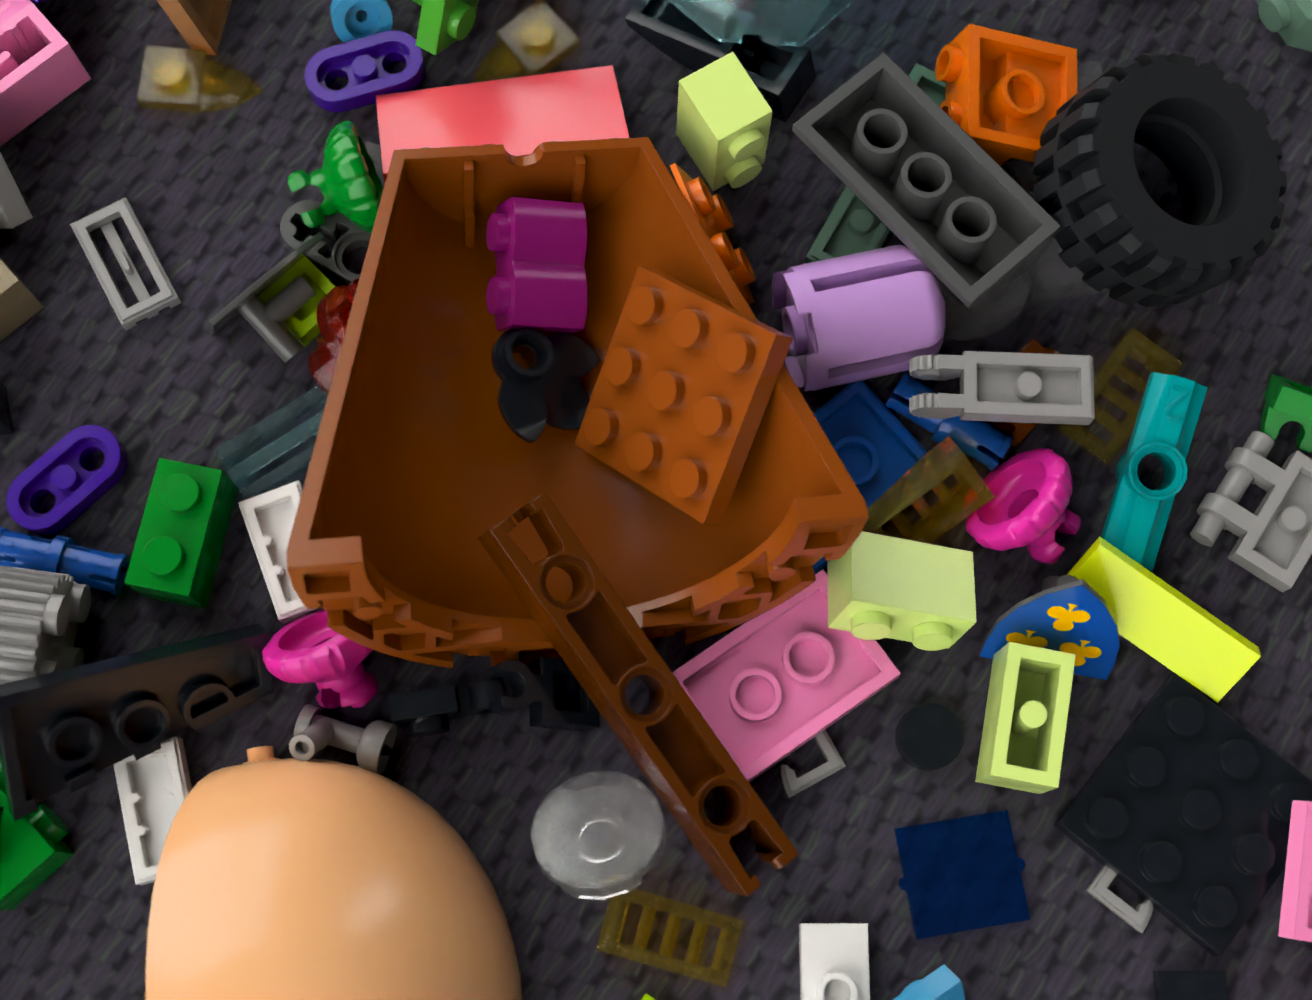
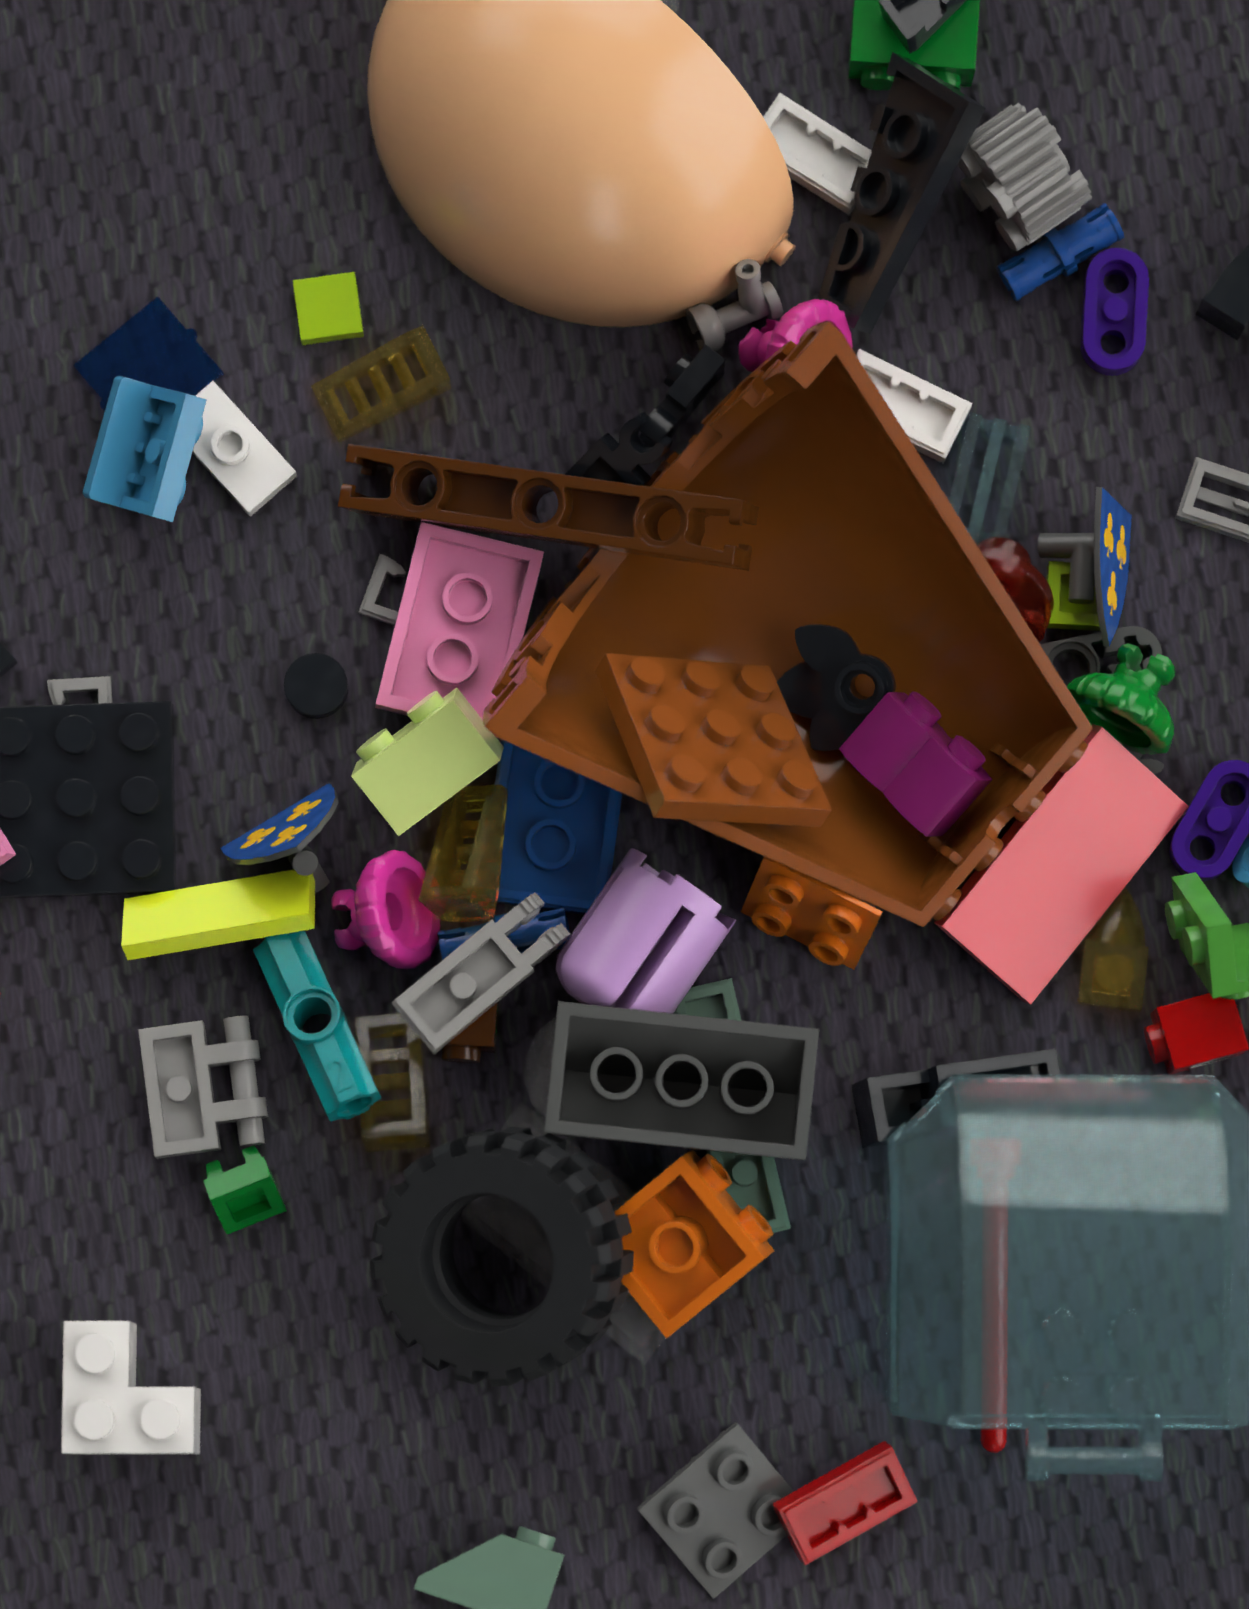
camera: 140 degrees right, 5 degrees up
(182, 533) = (987, 344): green brick -> none
(598, 834) = (491, 402): clear tile -> none
(723, 122) = (884, 1009): yellowish green brick -> none
(961, 874) = (210, 610): clear blue piece -> none
(1026, 718) = (257, 746): yellowish green brick -> none

